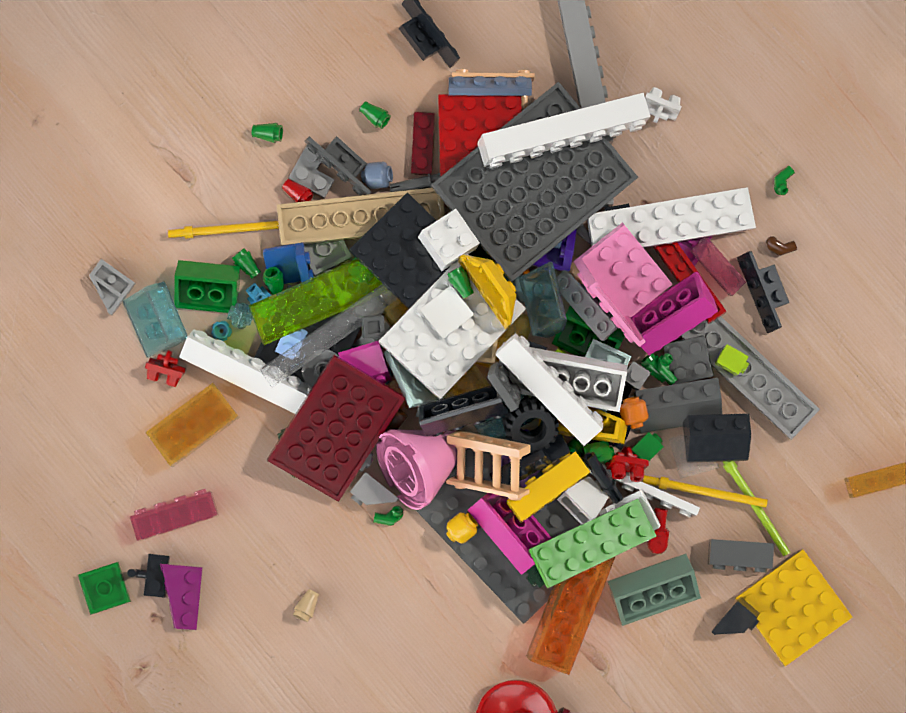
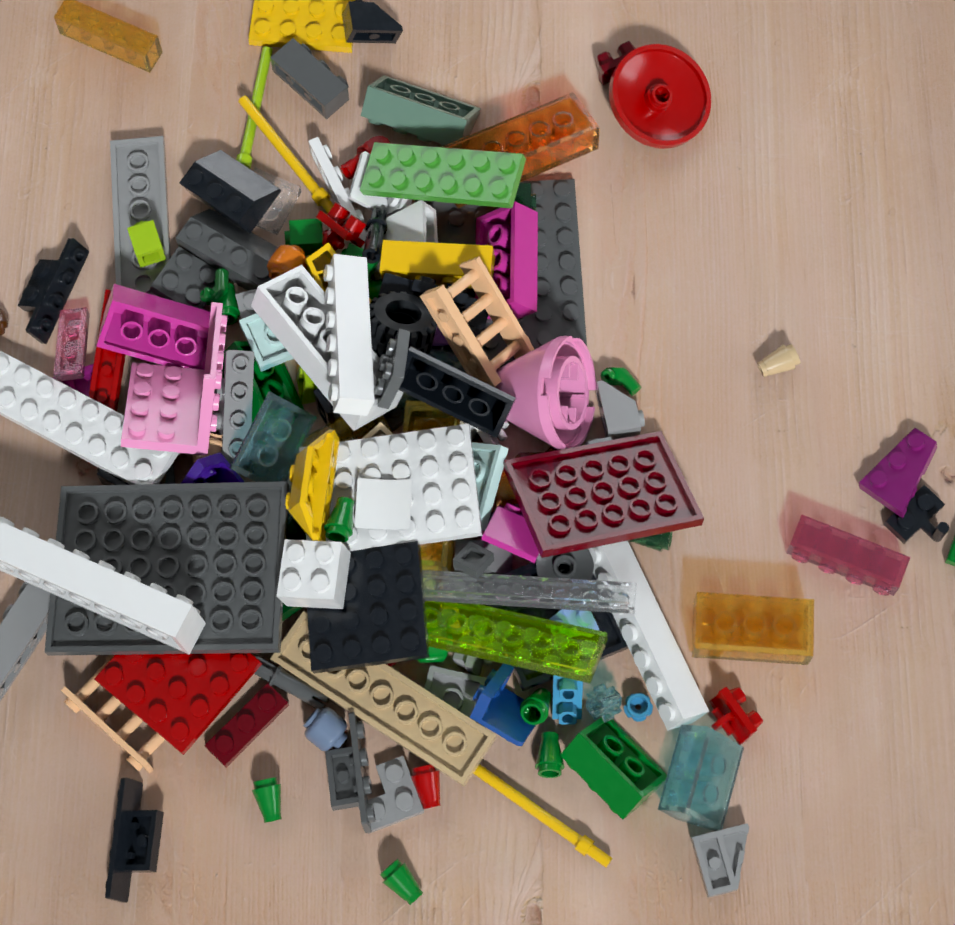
camera: 135 degrees left, 15 degrees down
(461, 528) = (557, 301): yellow head -> none
(490, 86) = (119, 715): sand blue plate -> none

